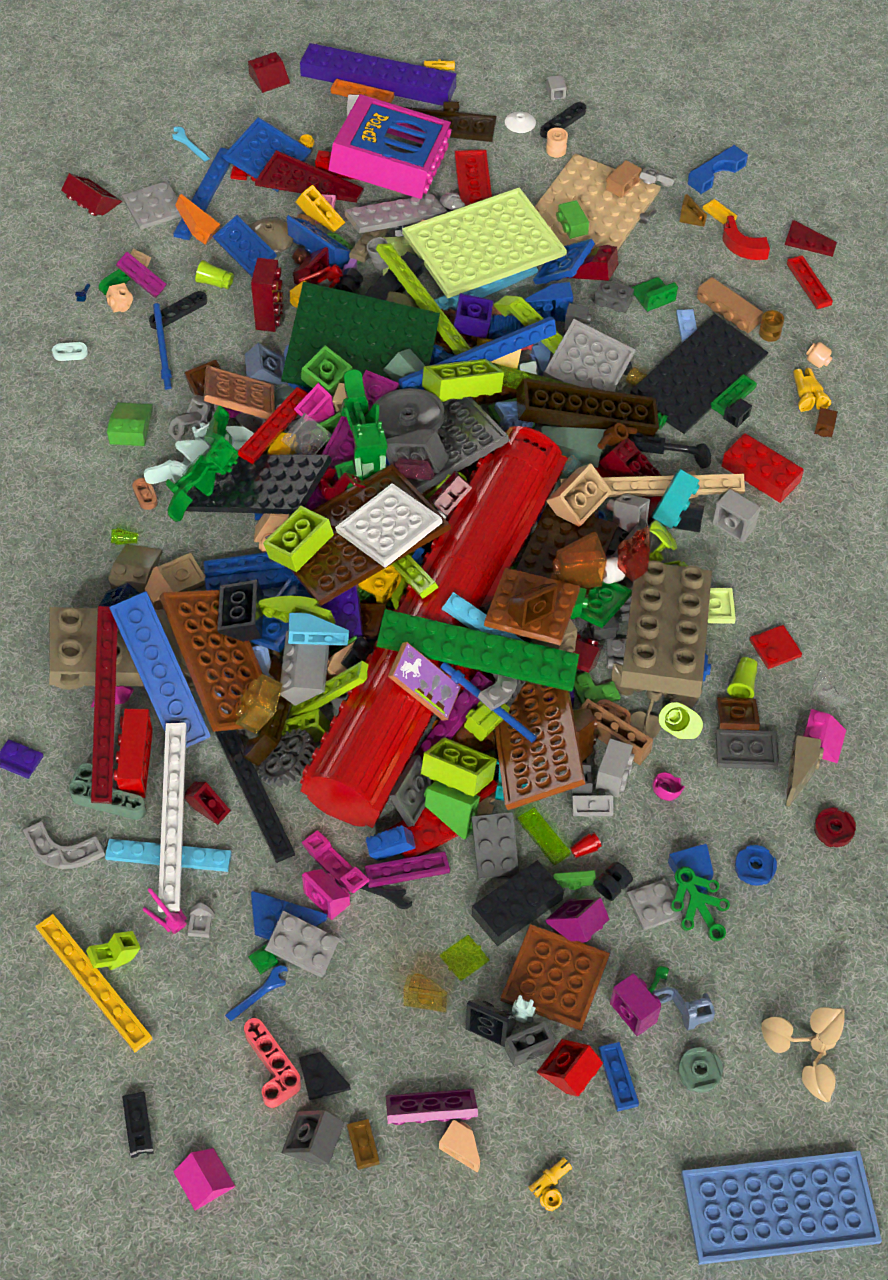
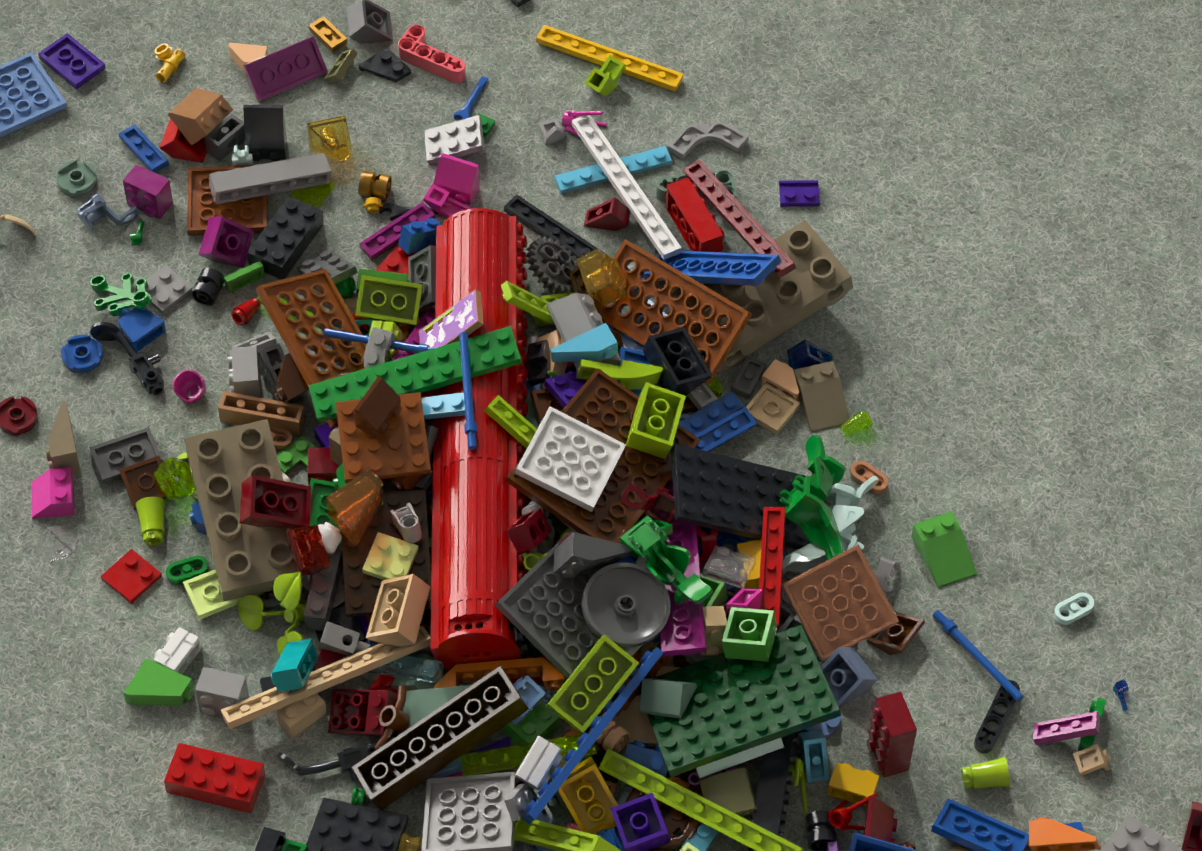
camera: 155 degrees right, 0 degrees up
(119, 297) = (1069, 692): light nougat brick -> none
(268, 910) = (494, 158): blue wing -> none
(370, 1091) = (343, 62): none -> olive plate
(402, 924) = (375, 185): none -> pearl gold wheel
(417, 908) = (373, 205): none -> yellow plate
(456, 576) = (470, 426): none -> blue bar
(506, 967) = (269, 178): none -> light grey brick
(526, 360) = (539, 763): none -> white brick
(542, 549) = (407, 523): none -> light grey piece
(548, 1068) = (199, 114): none -> medium nougat slope
(555, 342) = (518, 800): none -> light grey plate
(563, 533) = (389, 557): none -> yellowish green plate
(648, 591) = (274, 503): none -> dark red slope
(657, 1233) = (71, 61): none -> dark purple plate
(705, 830) = (138, 363): none -> black piece
(720, 701) = (165, 477): none -> clear neon green plate
(727, 631) = (186, 569): none -> green plate
(759, 567) = (179, 650): none -> white brick
(783, 548) = (158, 686): none -> bright green slope

